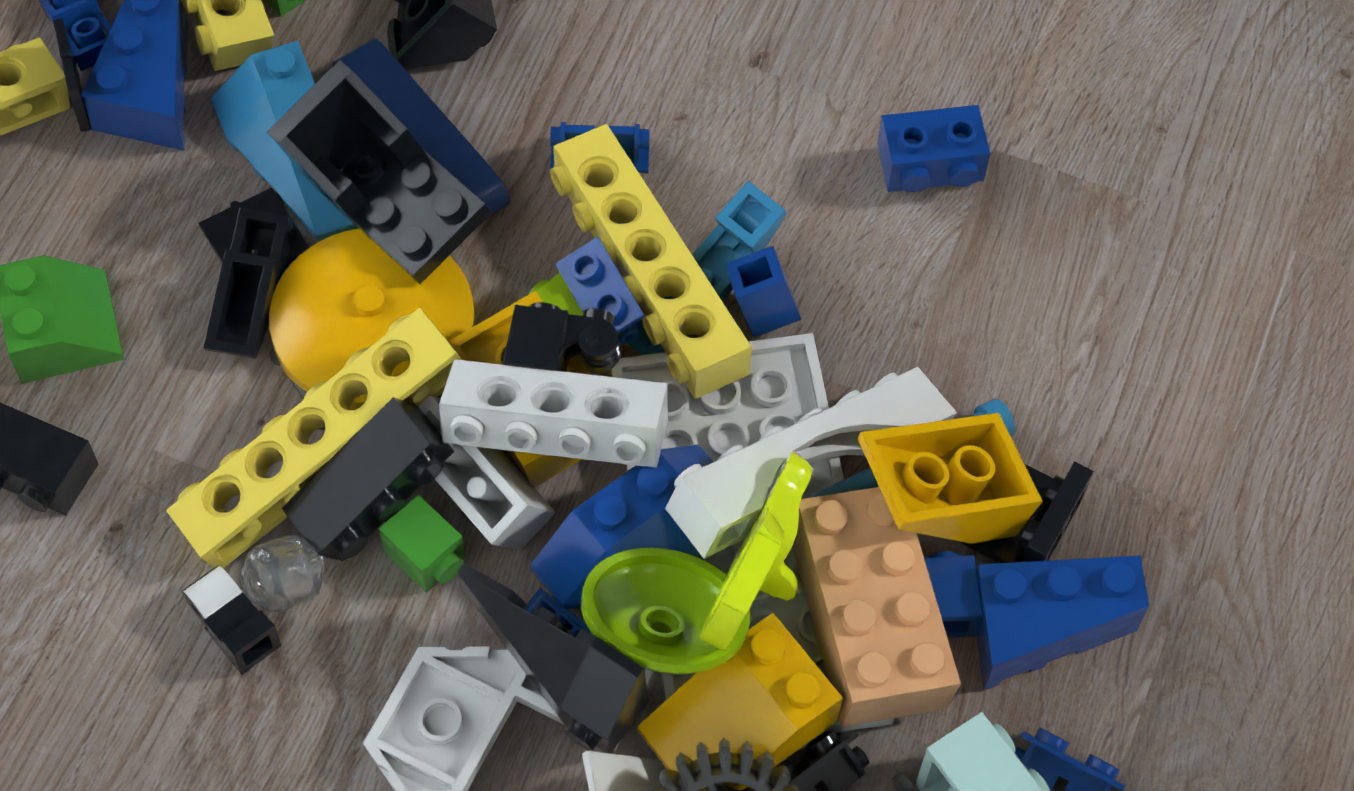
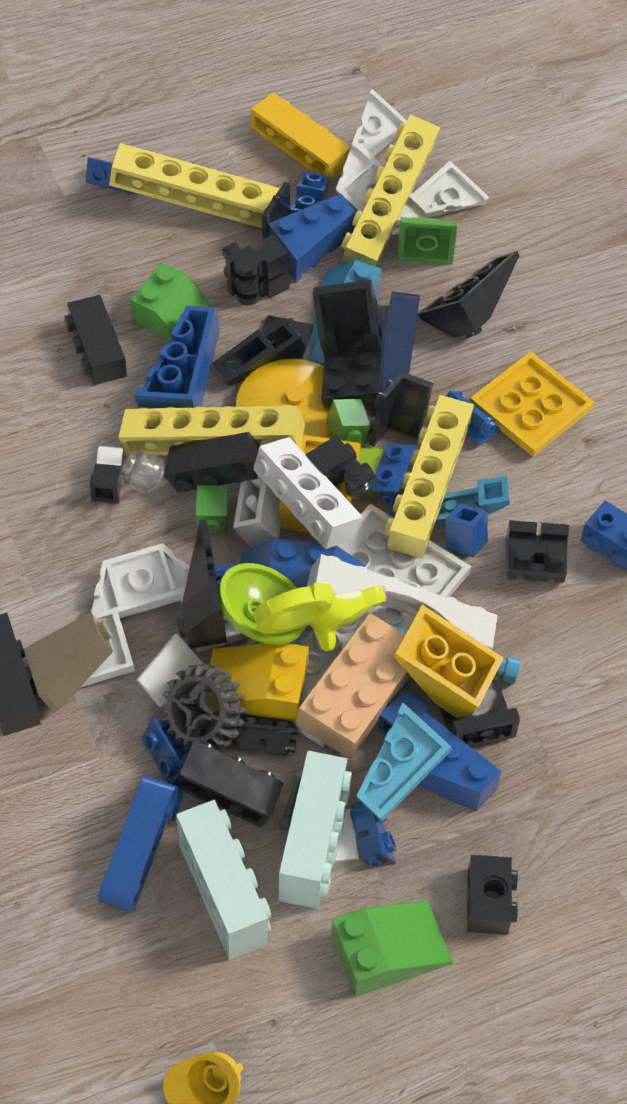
camera: 45 degrees right, 5 degrees down
(128, 182) = (256, 272): none -> black hips
(179, 393) = (183, 364): none -> blue wedge
(478, 277) = (348, 420): none -> bright green brick
(524, 200) = (401, 407): none -> black bracket
(653, 67) = (532, 403): none -> yellow plate
(864, 248) = (534, 554): none -> black hips
(1036, 655) = (403, 762): none -> medium azure wing
(1280, 747) = (485, 913): none -> black brick

